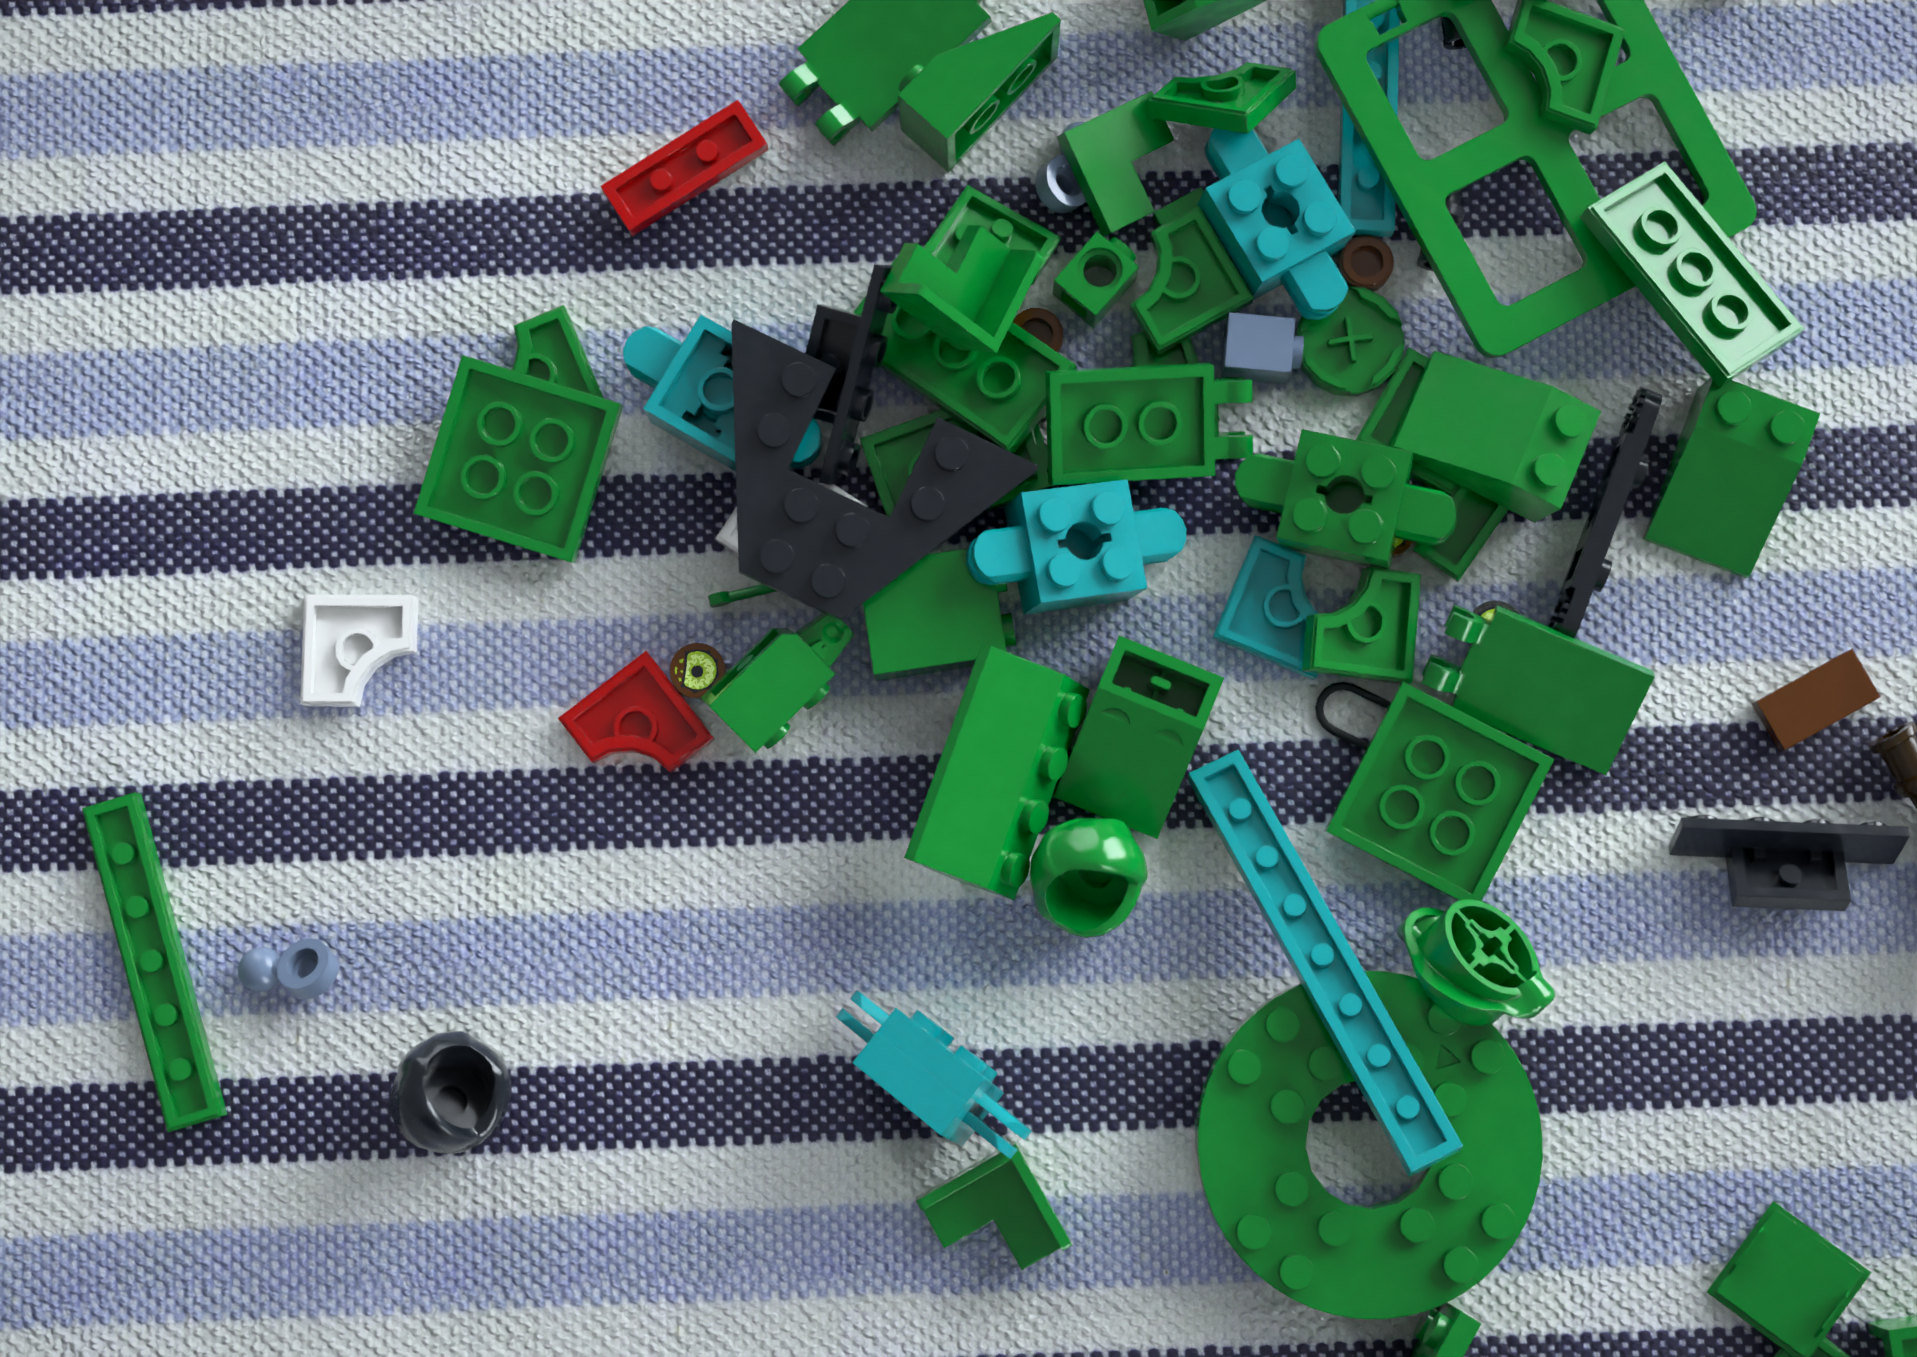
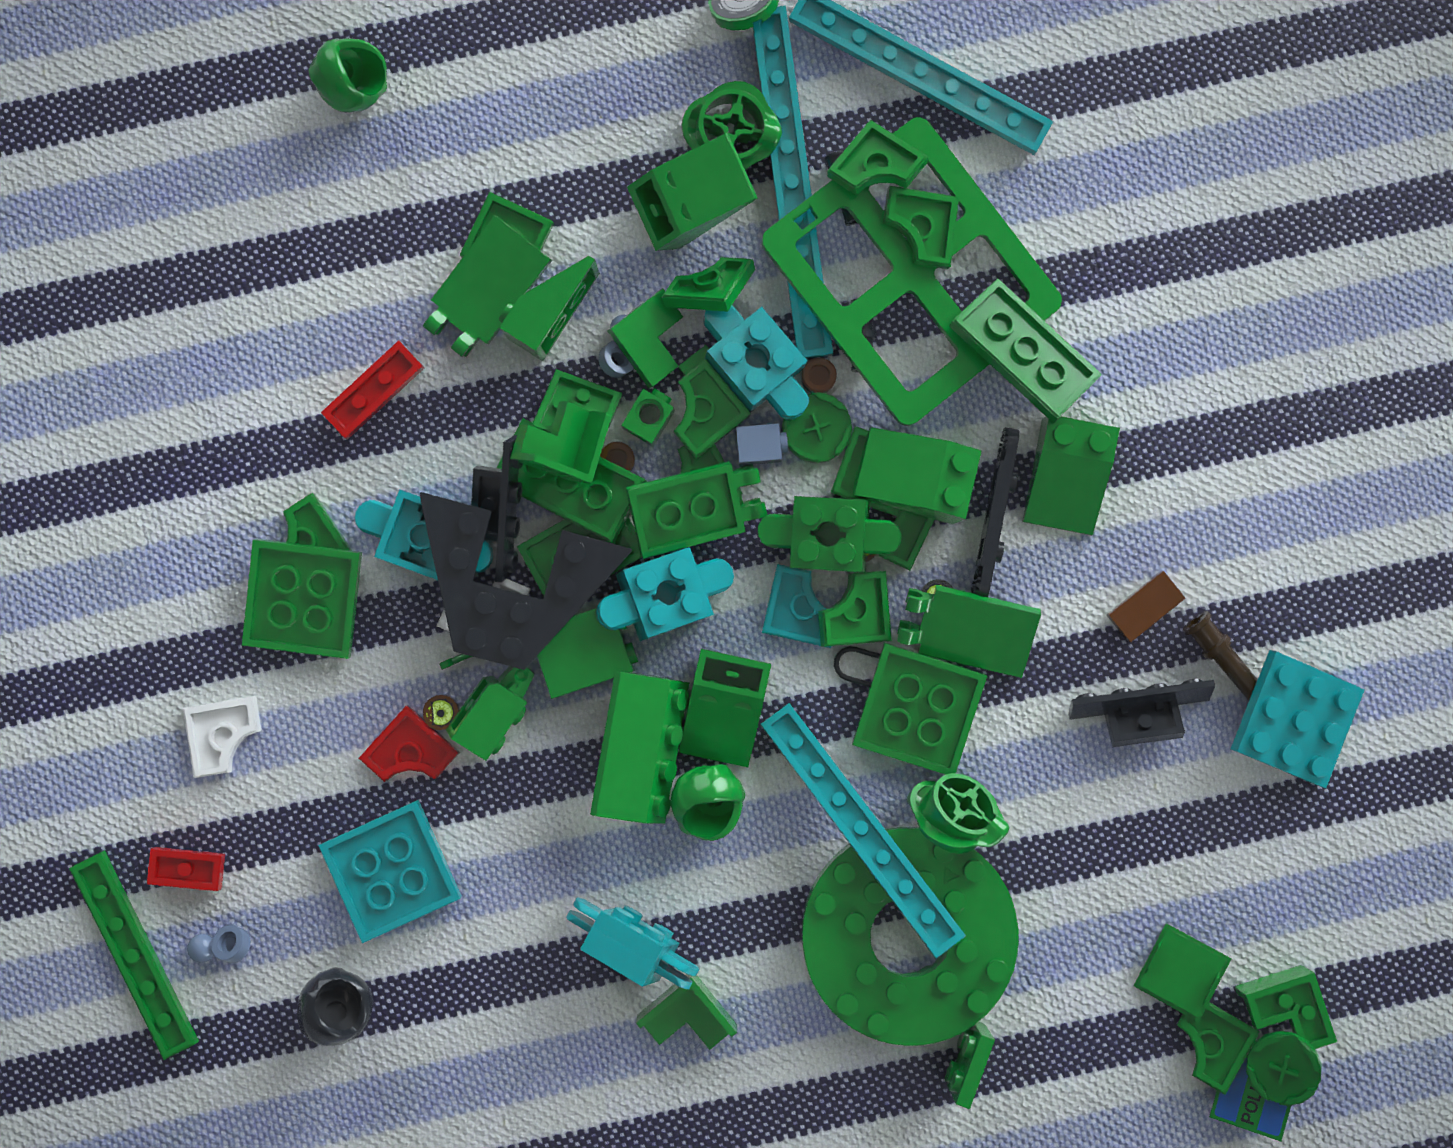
camera: 15 degrees left, 5 degrees up
(261, 841) = (185, 869): none -> red plate
(574, 900) = (390, 871): none -> teal plate

